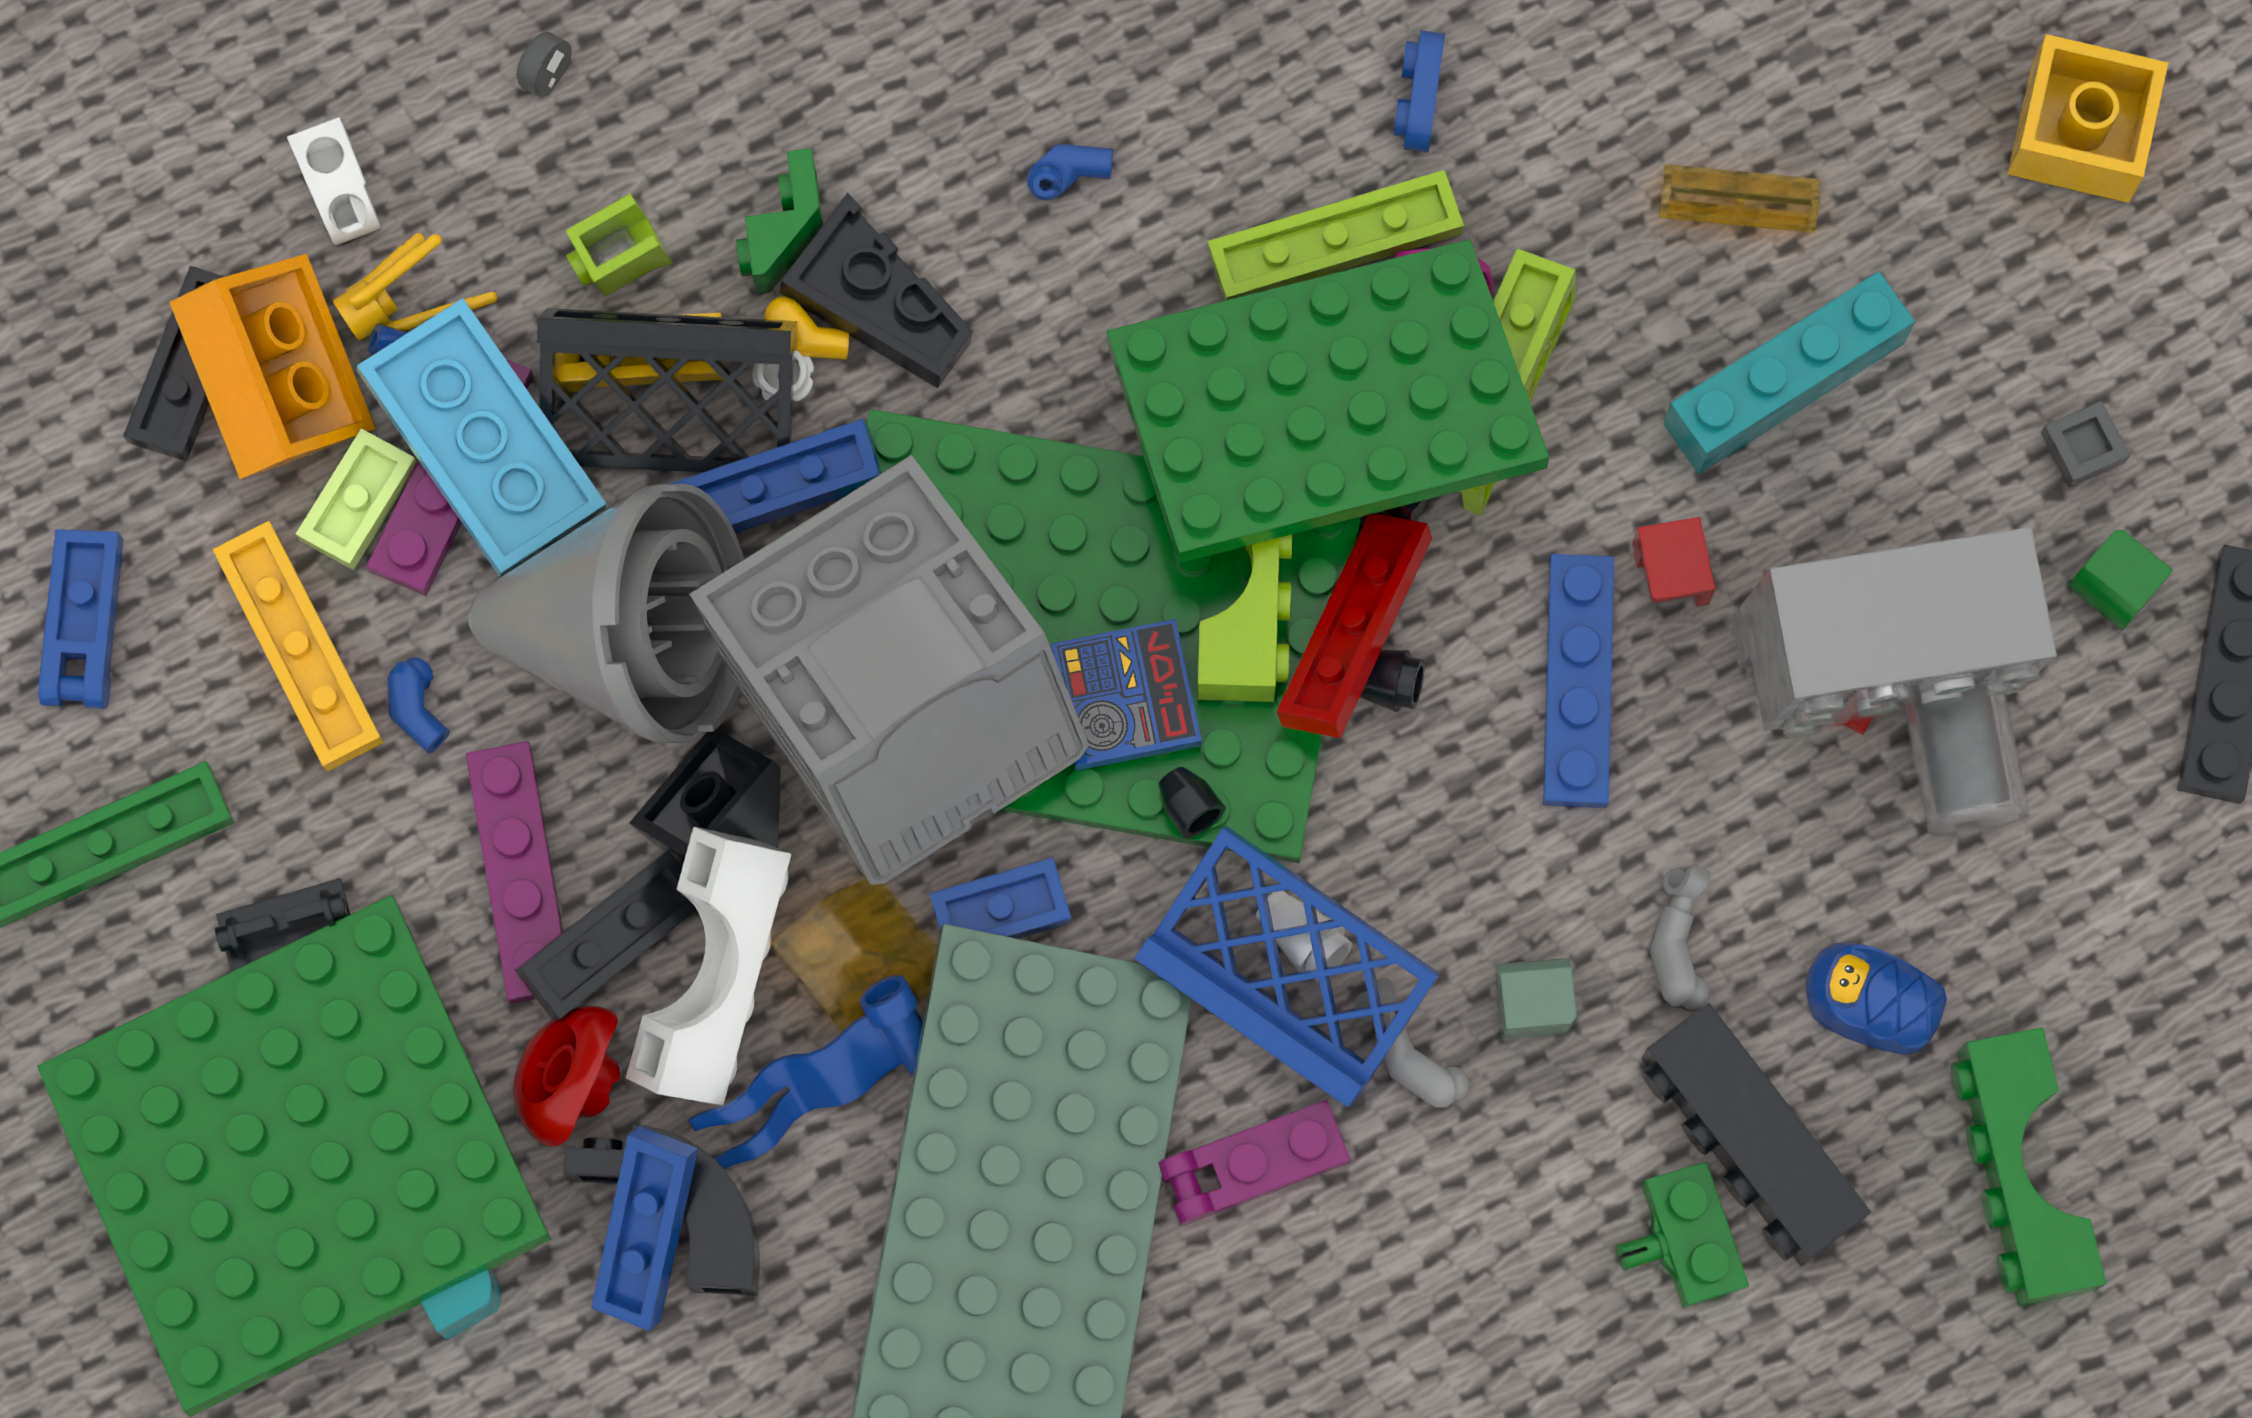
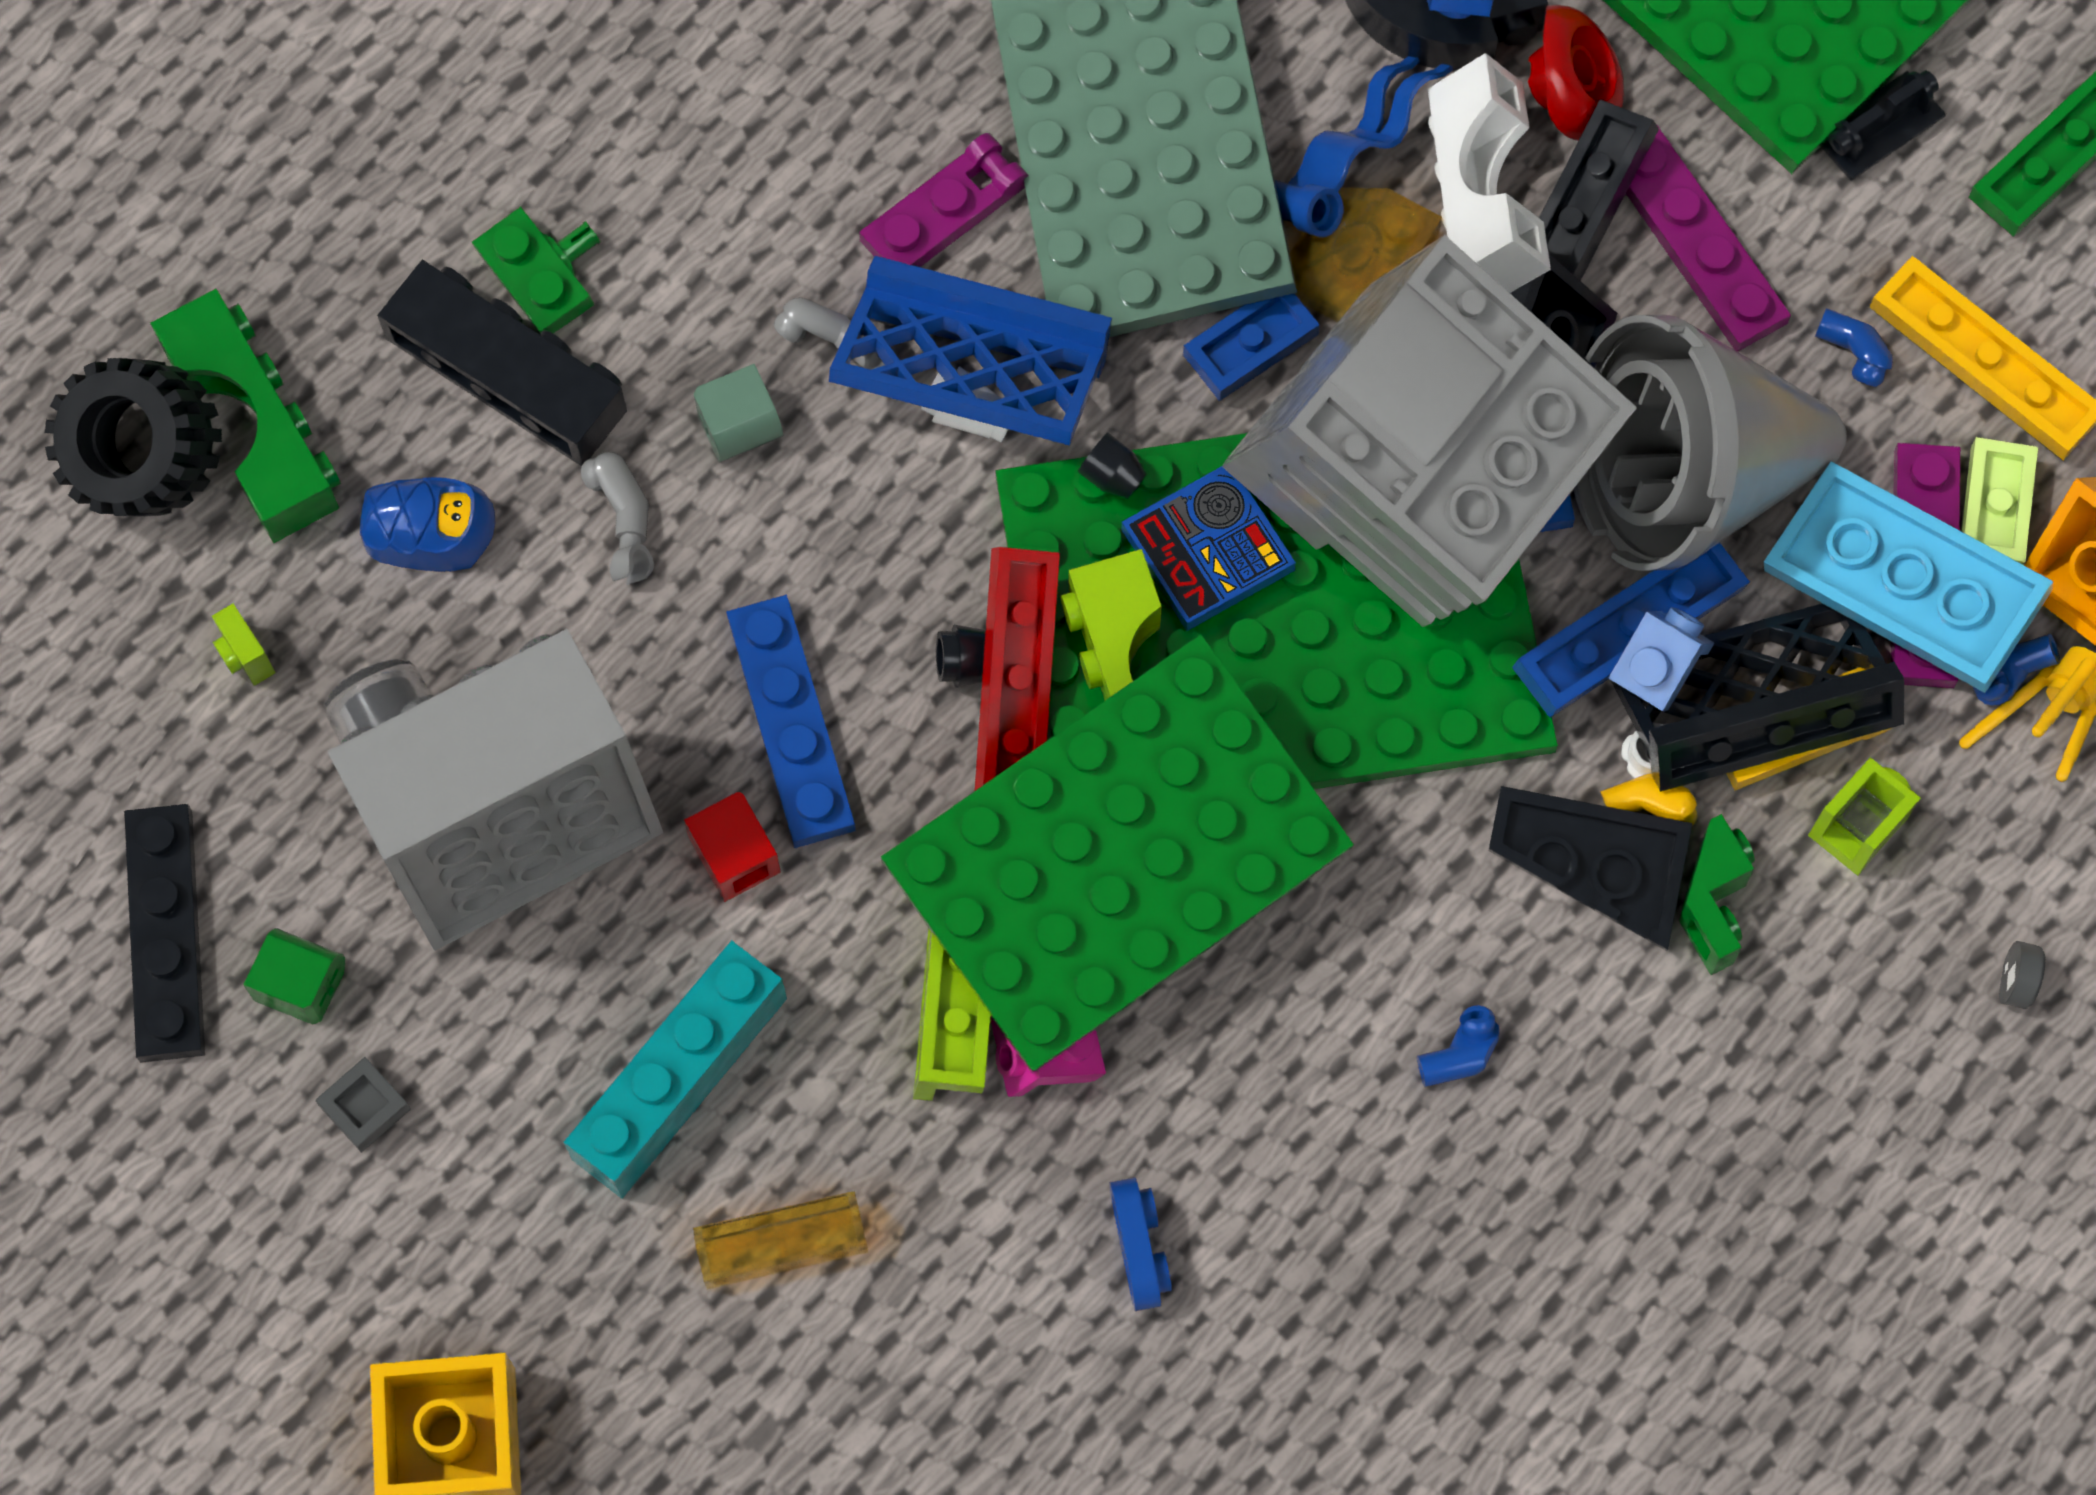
camera: 160 degrees right, 5 degrees down
(744, 429) = (1661, 656): none -> medium blue bracket
(1336, 236) = (1170, 1065): lime plate -> none
(2092, 922) = (240, 647): none -> lime plate
(2185, 1136) = (88, 426): none -> black tyre

